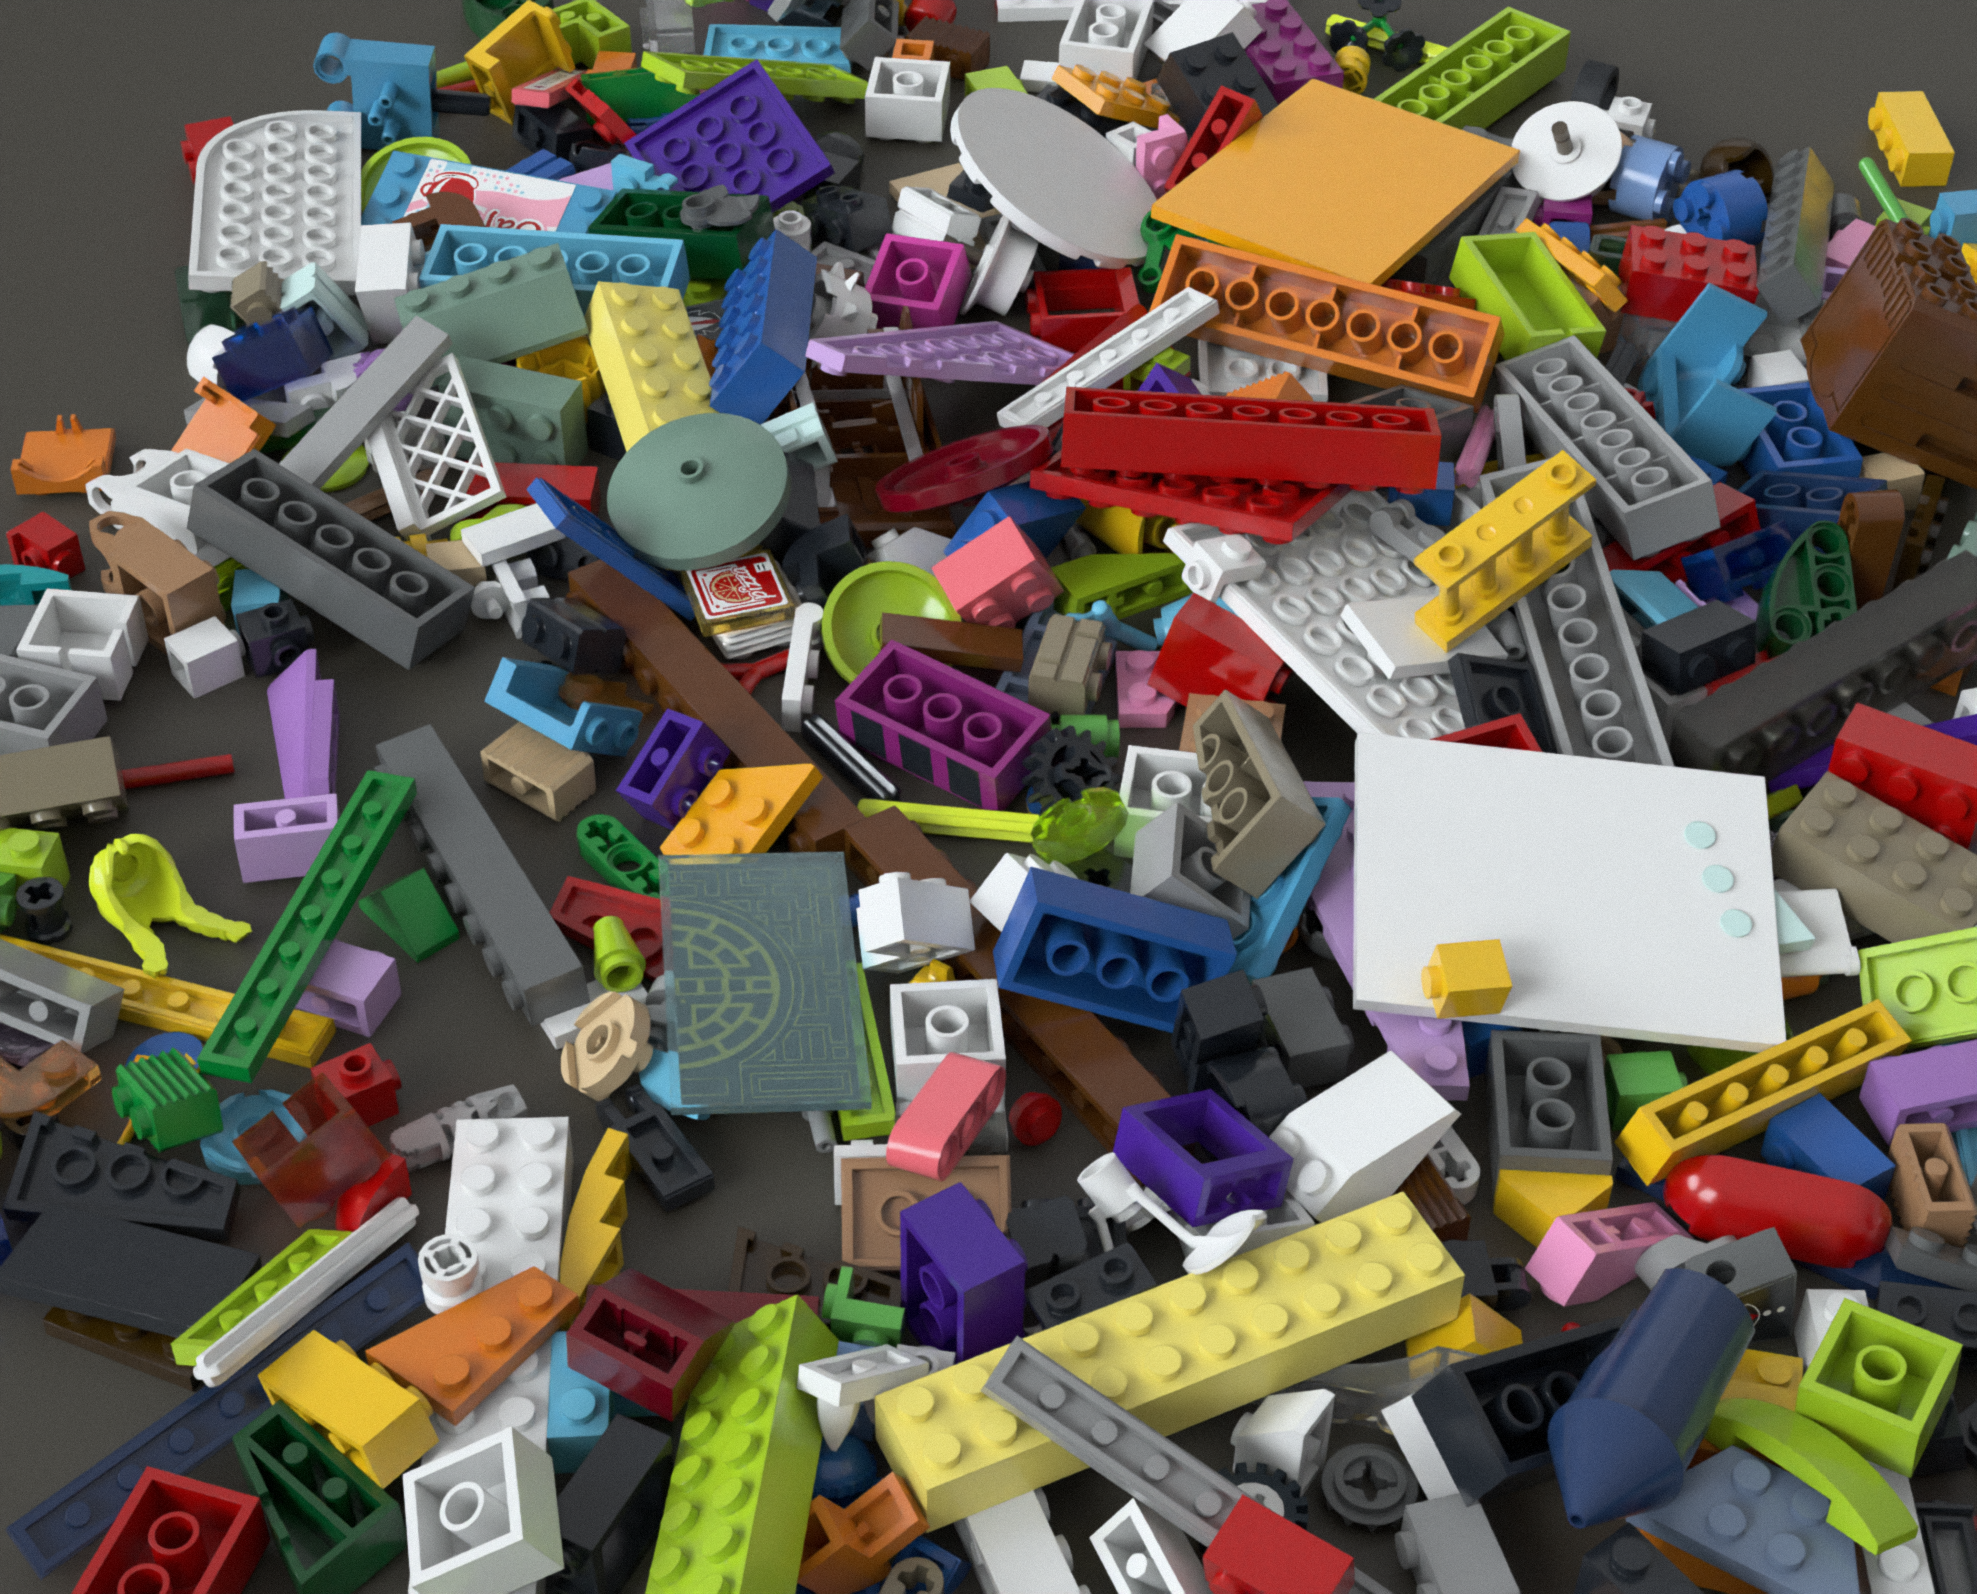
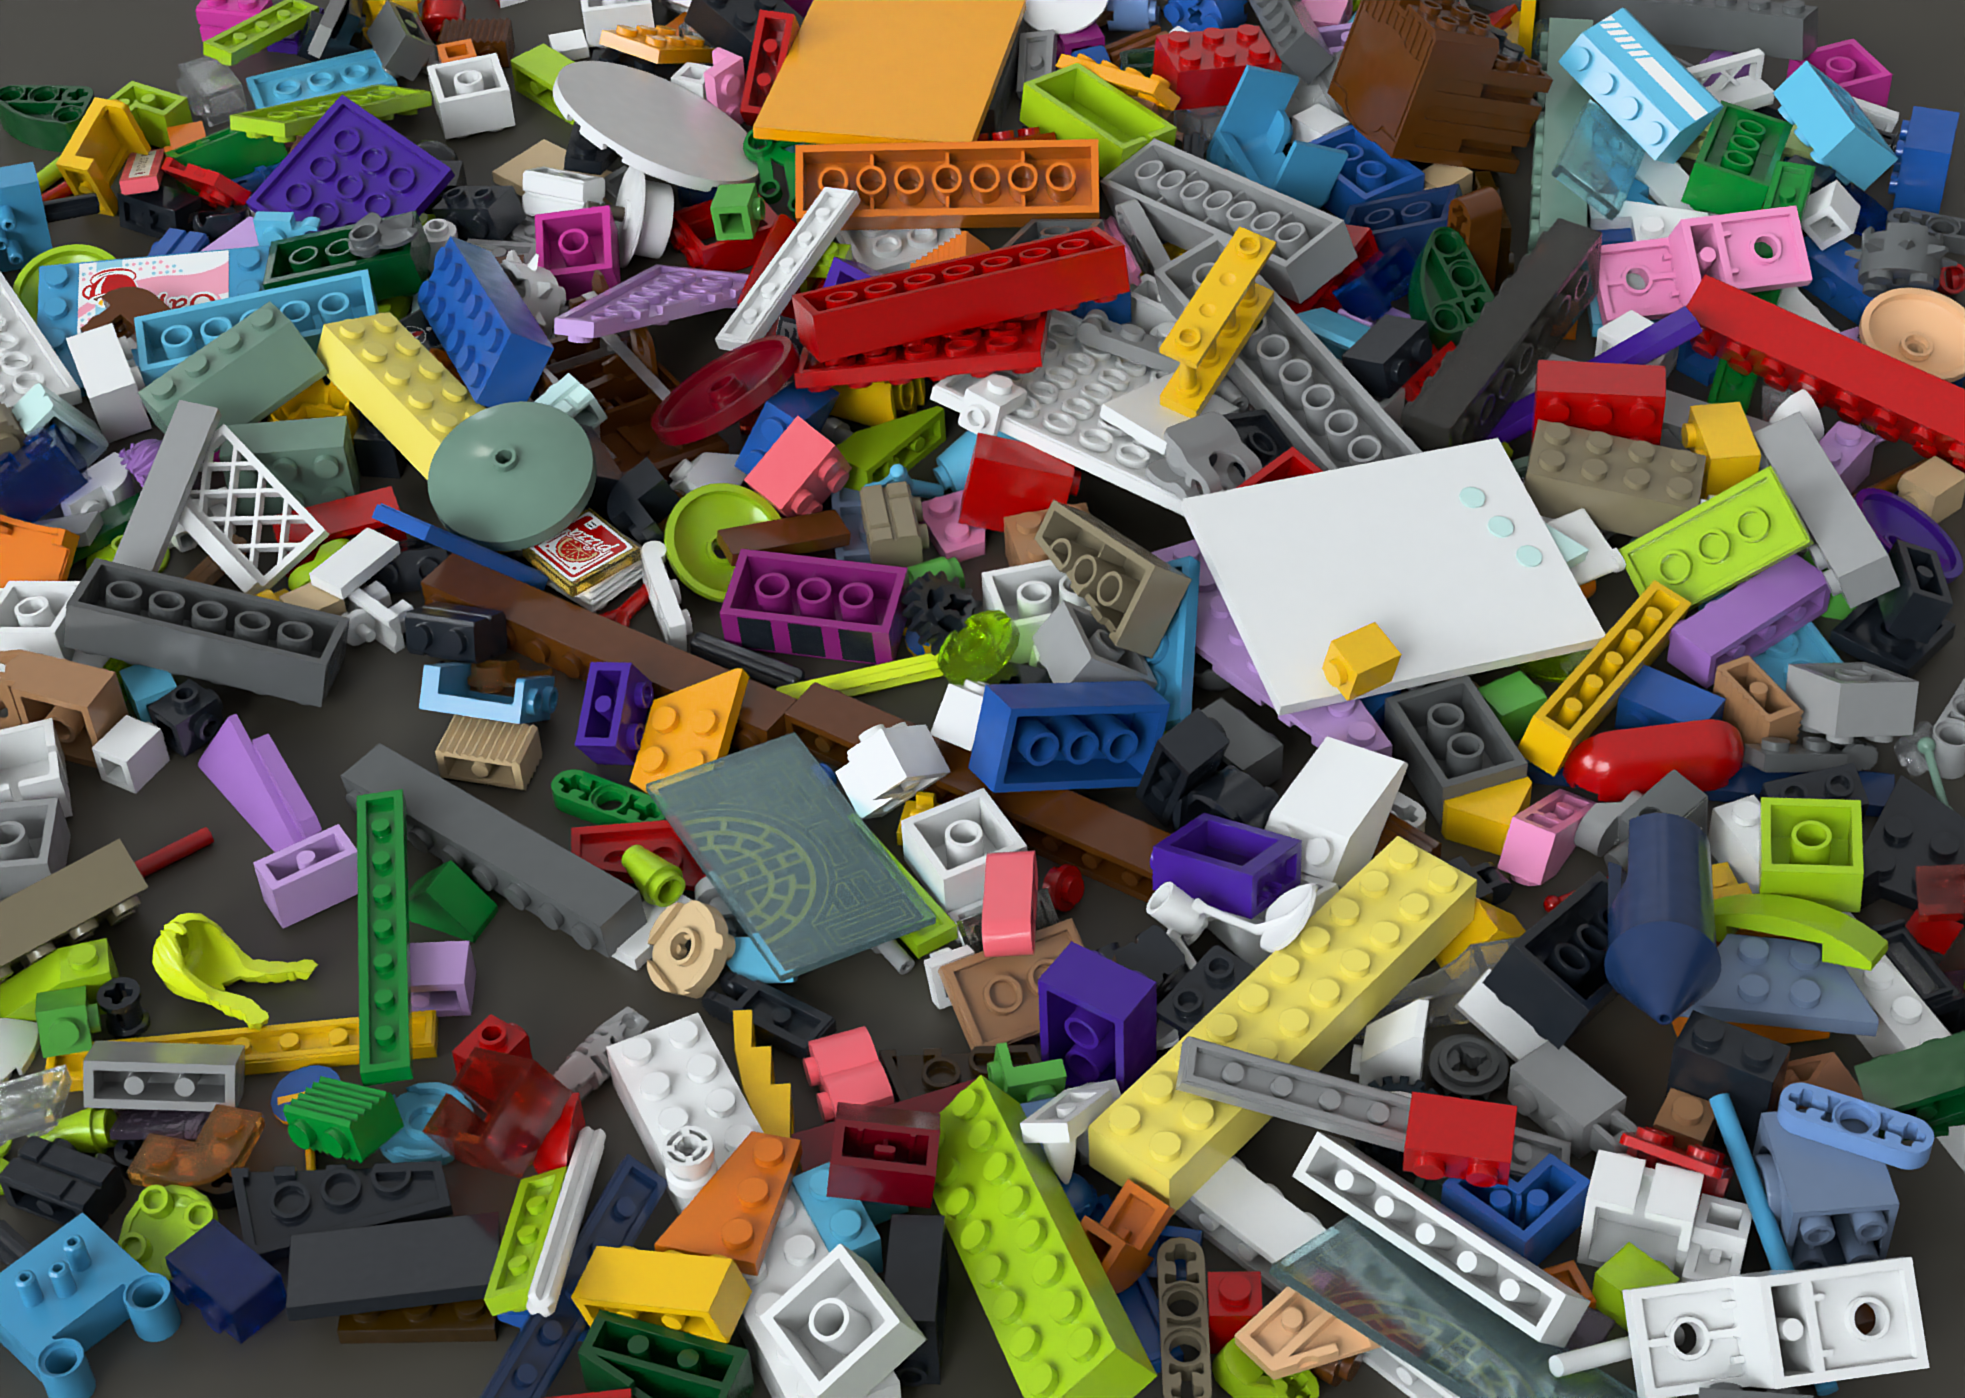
camera: 20 degrees left, 0 degrees up
(692, 1240) = (846, 1072): none -> coral brick
(1093, 288) = (737, 211): none -> bright green brick
(1419, 689) = (1202, 453): none -> light grey piece

